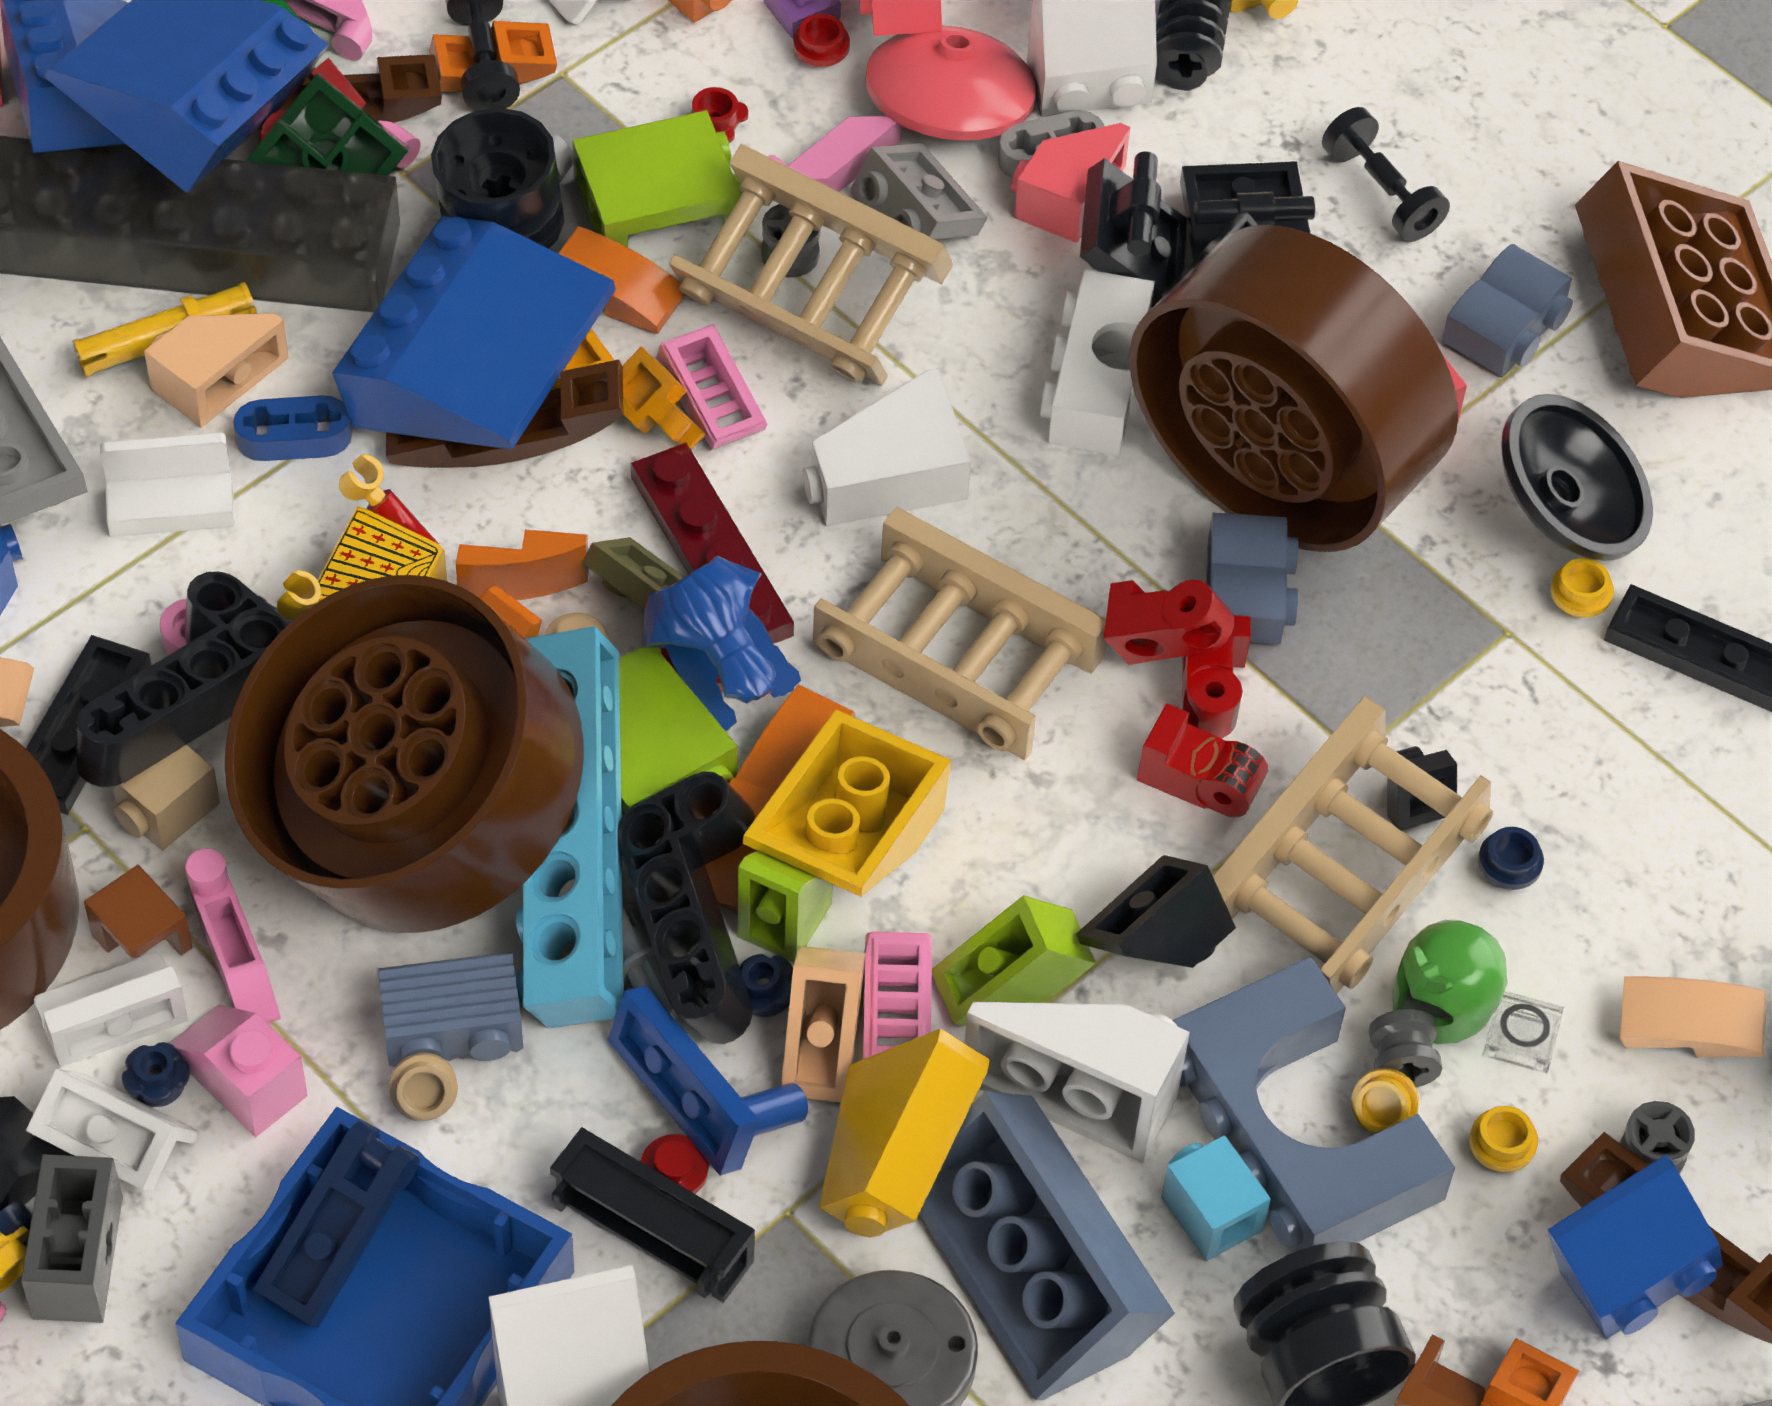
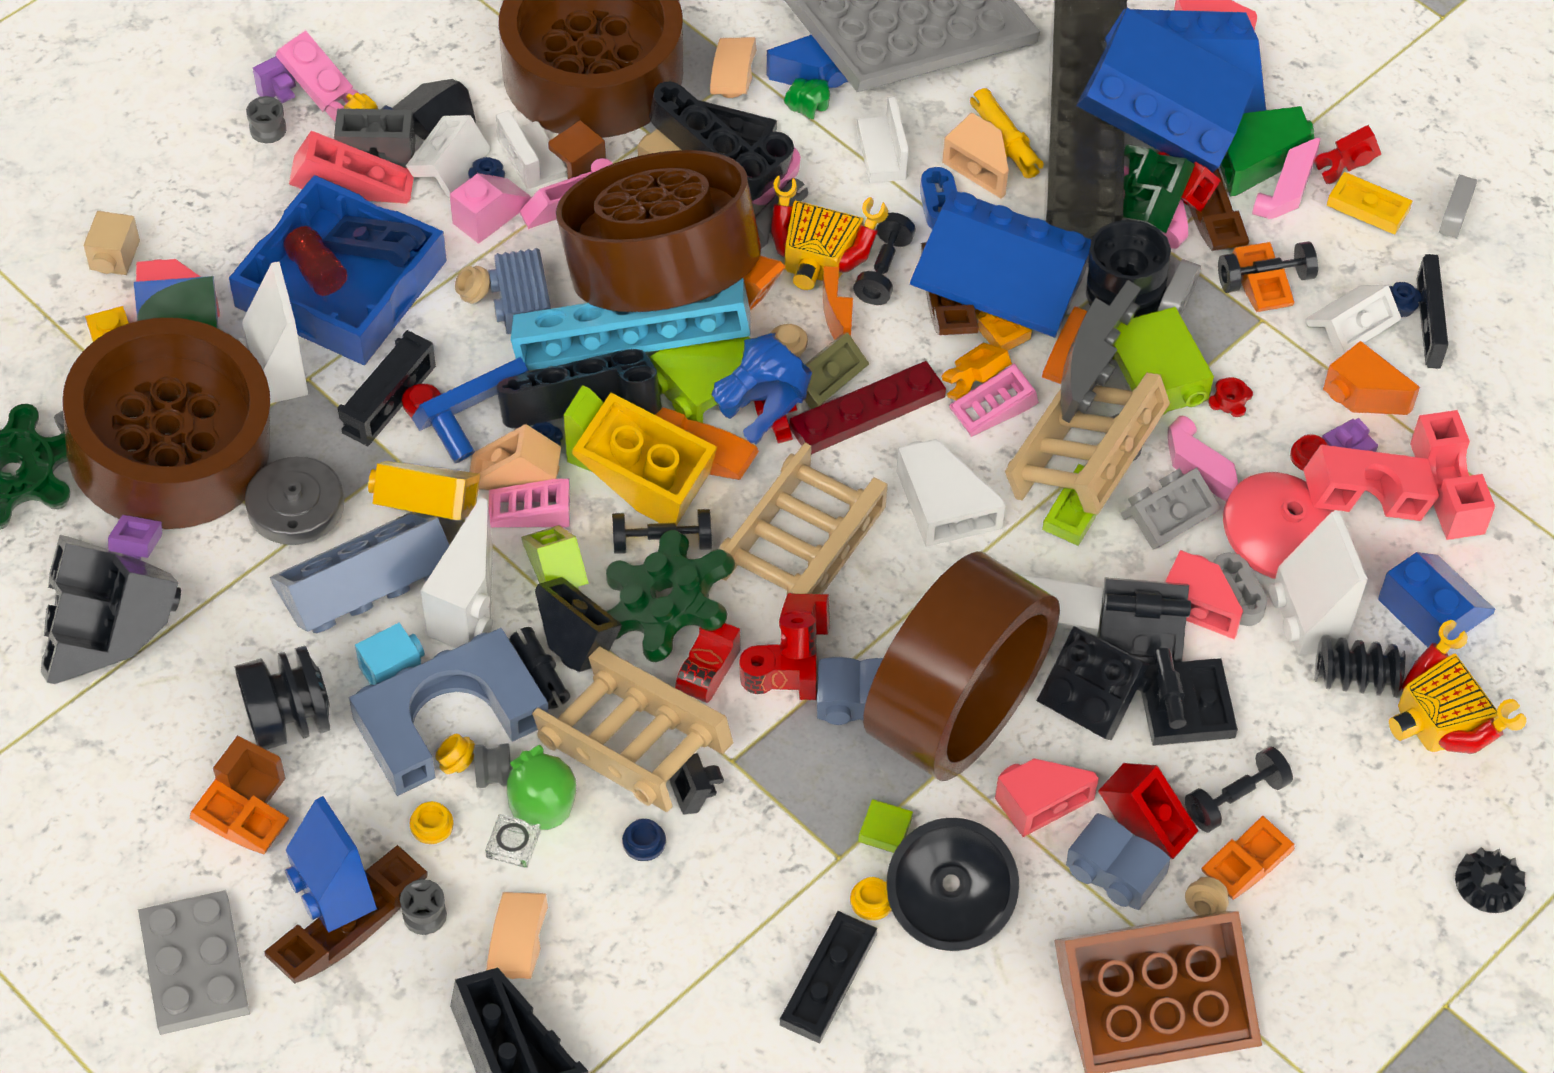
camera: 90 degrees right, 0 degrees up
(44, 585) = (807, 96): none -> green arm
(139, 1295) = (351, 169): none -> coral slope
(363, 1331) = (315, 260): none -> clear red piece
(480, 518) = (873, 286): none -> black wheel
(679, 234) = (1093, 350): none -> dark grey slope
(928, 311) = (1067, 516): none -> lime plate
(964, 871) = (656, 530): none -> black wheel
(1076, 763) = (684, 606): none -> dark green plate
(1213, 984) = (540, 666): none -> black pin
(1425, 267) = (1148, 807): none -> red slope
(1462, 569) = (885, 826): none -> lime tile
(1475, 182) = (1249, 858): none -> orange slope
(1552, 224) = (1207, 896): none -> tan plate

